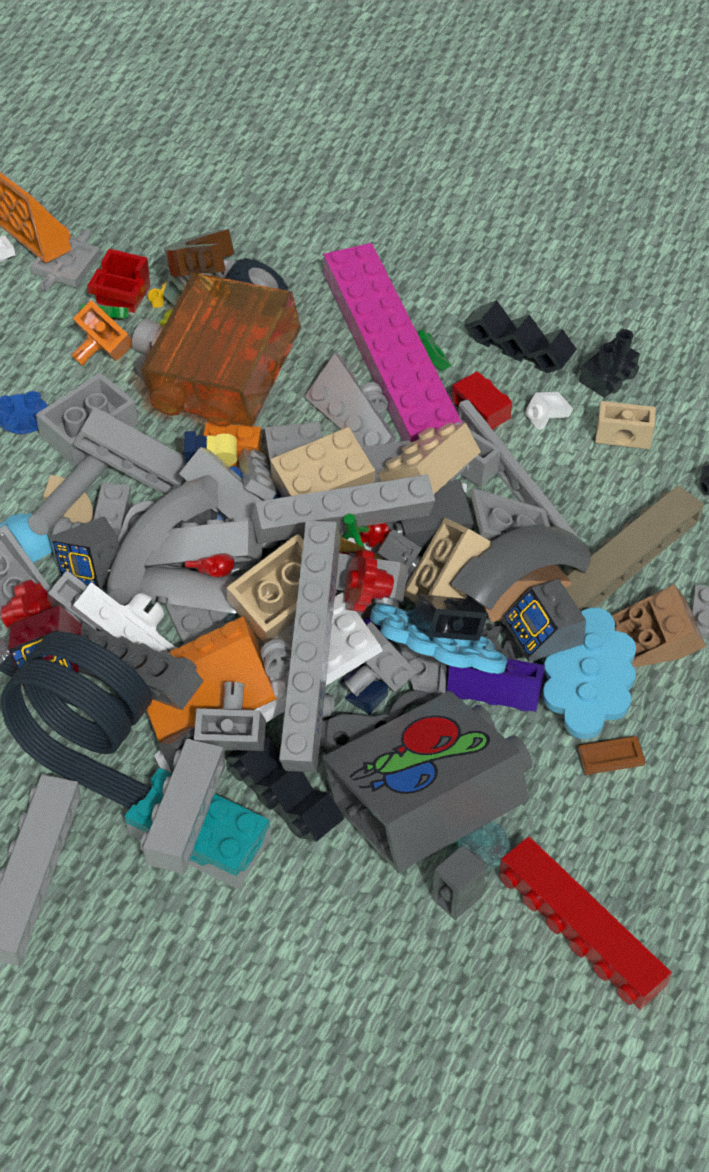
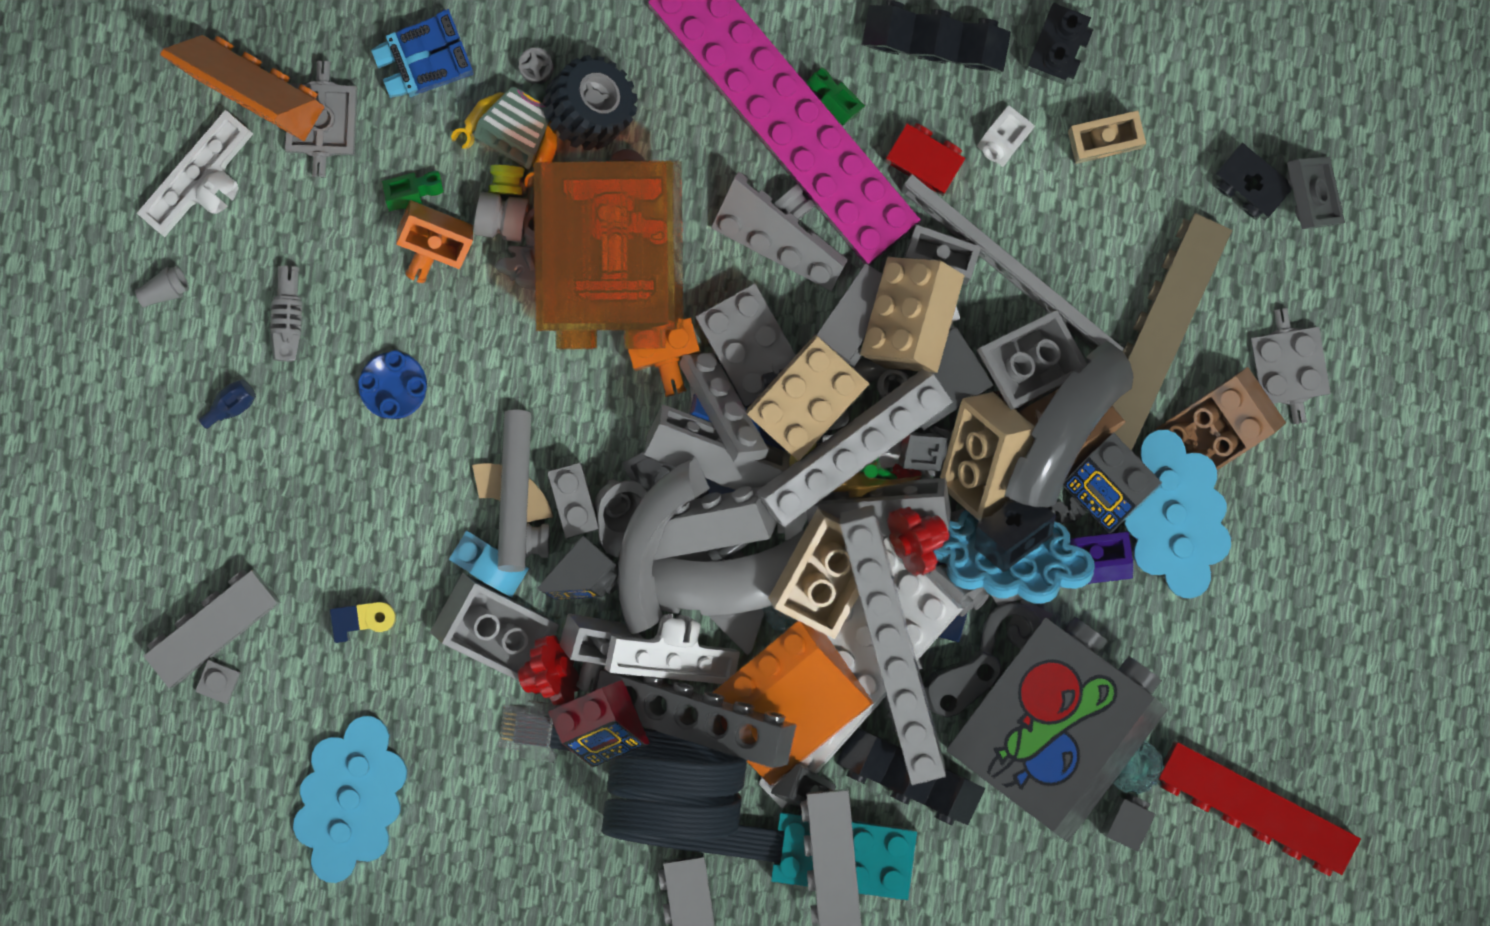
camera: 20 degrees left, 35 degrees up
(64, 418) = (479, 375): light grey brick -> none
(121, 280) = (414, 141): red plate -> none
(131, 451) = (562, 415): light grey brick -> none
(150, 243) = (412, 52): none -> hips
(199, 253) = (482, 87): reddish brown arch -> none
(214, 566) = (734, 560): red piece -> none
(221, 445) = (651, 383): leg -> none
(231, 726) = (841, 757): light grey brick -> none
(276, 658) = (857, 659): light grey wheel -> none
(611, 755) = (1225, 596): dark orange tile -> none

